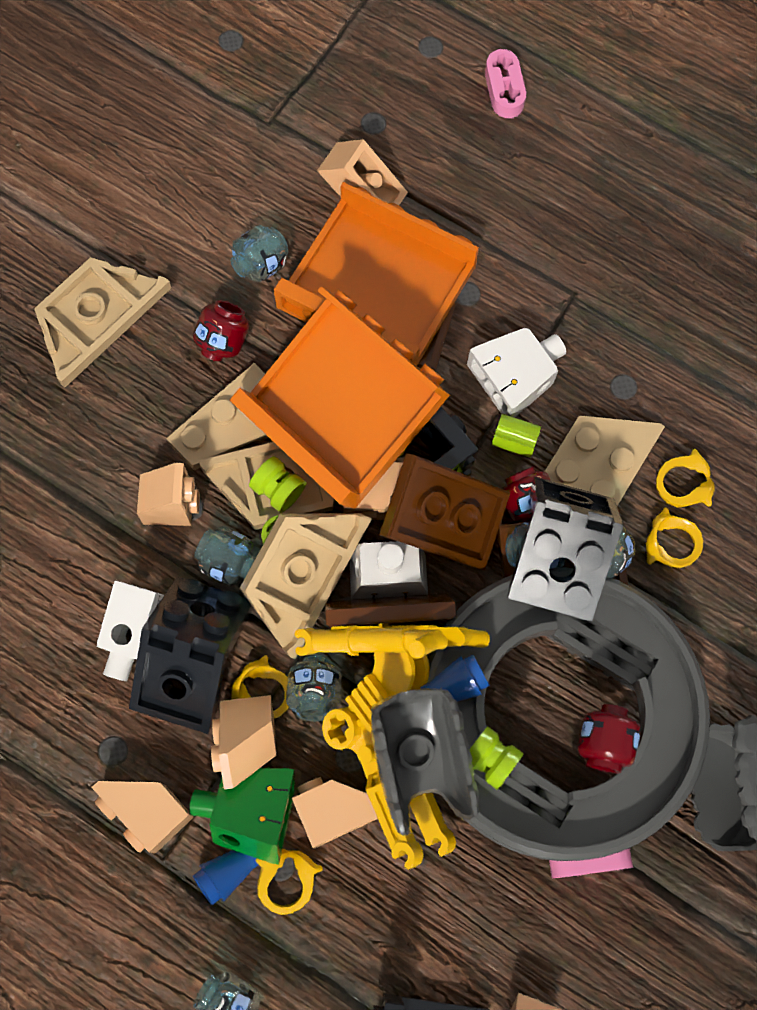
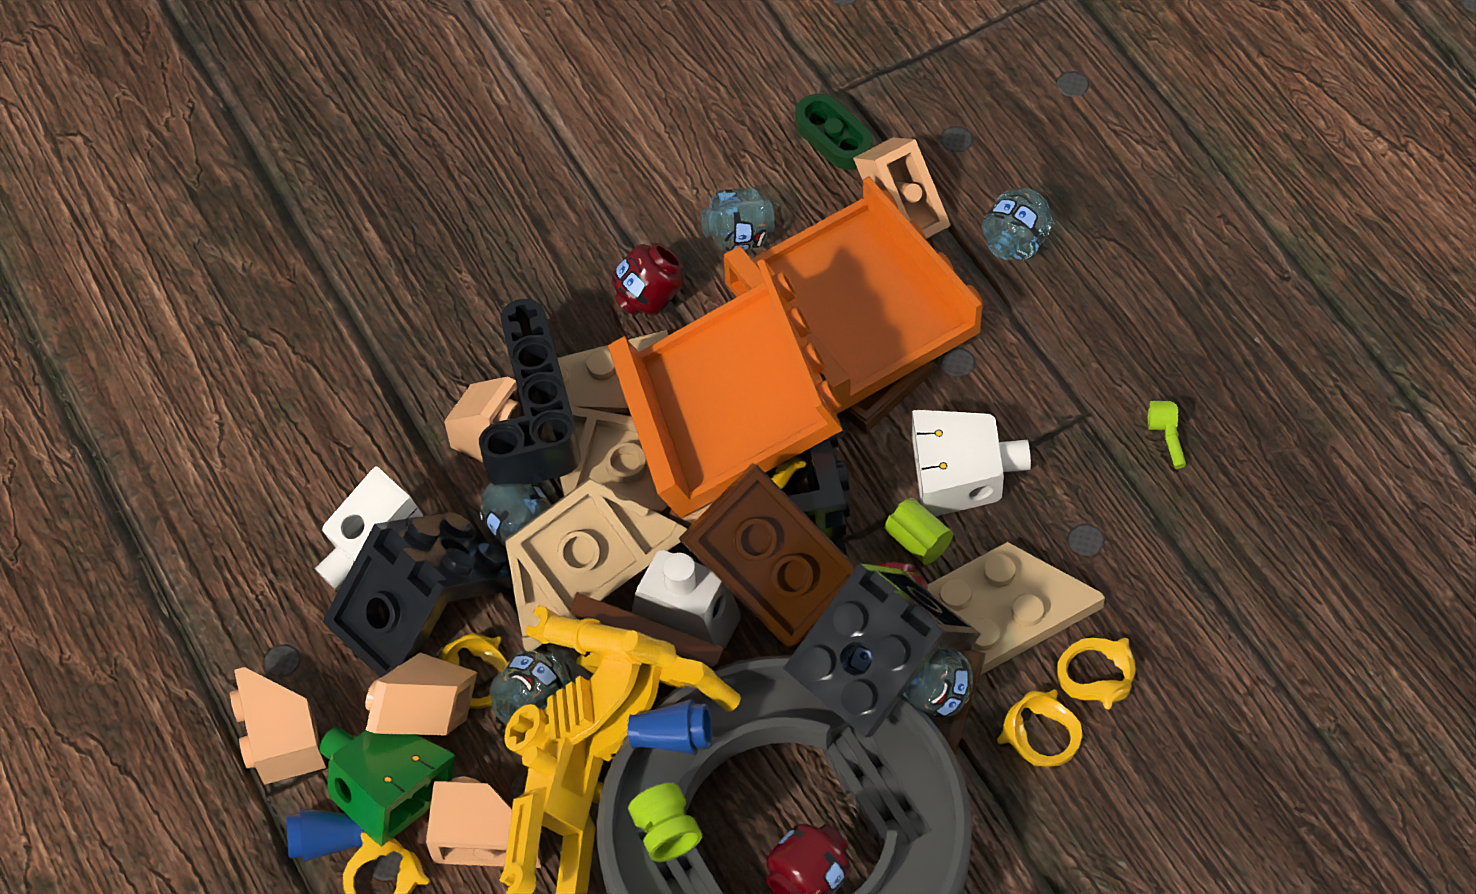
camera: 35 degrees right, 15 degrees down
(93, 312) = (523, 208): tan wing -> none
(195, 454) = (544, 439): none -> black beam
(277, 484) = (609, 452): lime wheel -> none
(290, 154) = (837, 134): none -> dark green plate
(422, 751) = (576, 767): dark grey animal -> none
(459, 172) = (1017, 224): none -> clear light blue head
(512, 82) = (1126, 151): bright pink beam -> none
(633, 273) = (1164, 416): none -> lime hand

